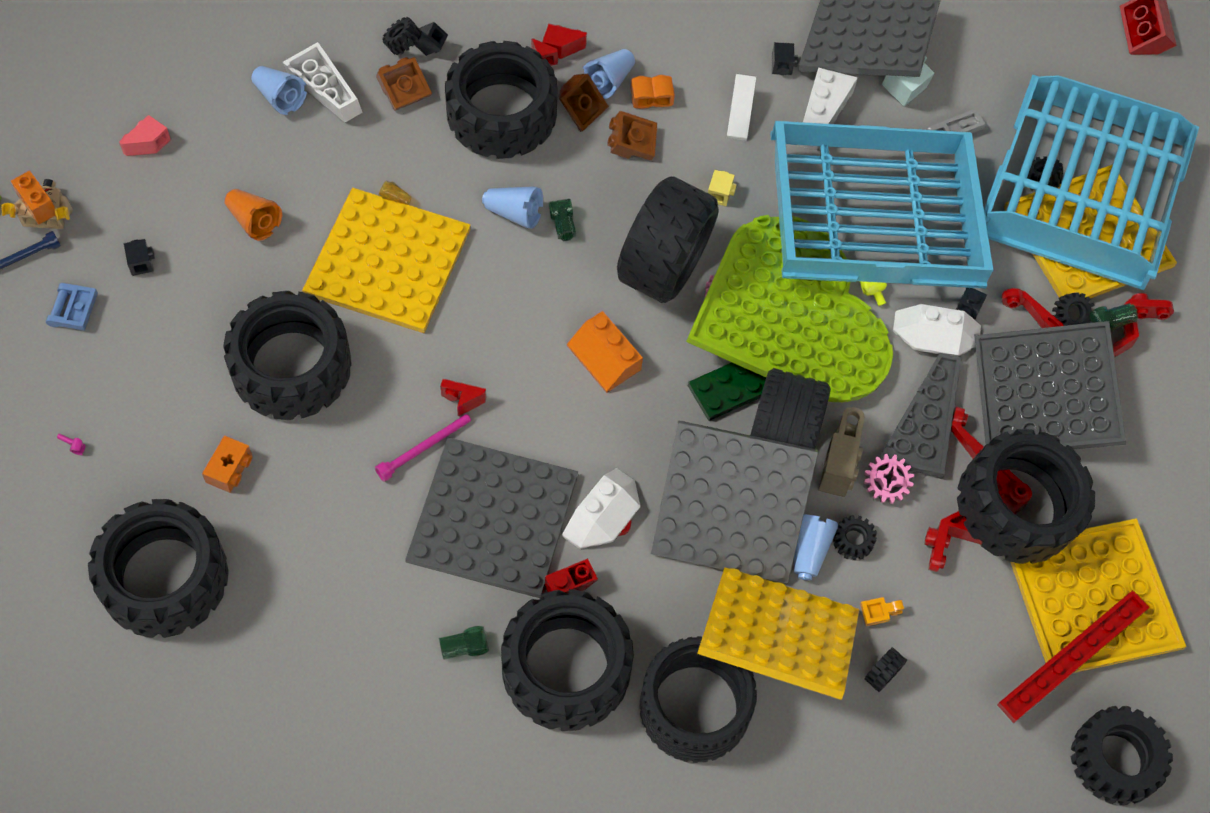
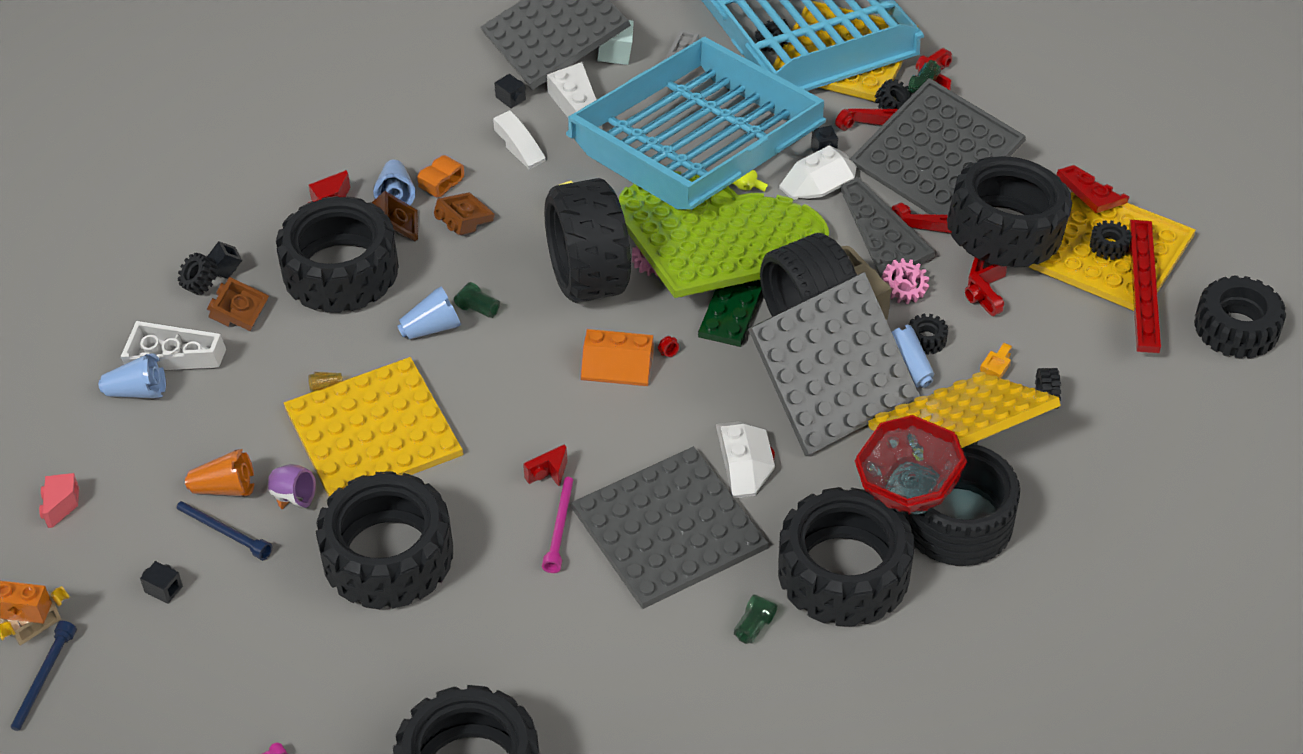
camera: 40 degrees left, 15 degrees down
(78, 307) = (151, 656): medium blue plate -> none
(221, 287) = (260, 548): none -> dark blue piece
(221, 471) = (424, 658): orange brick -> none
(286, 254) = (292, 483): none -> medium lavender piece
(575, 577) = (779, 506): red slope -> none
(650, 625) = (910, 464): none -> clear light blue rock
(653, 375) = (668, 346): none -> red plate
(1101, 581) = (1110, 248): none -> black tyre
(1134, 535) = (1092, 193): none -> red wing

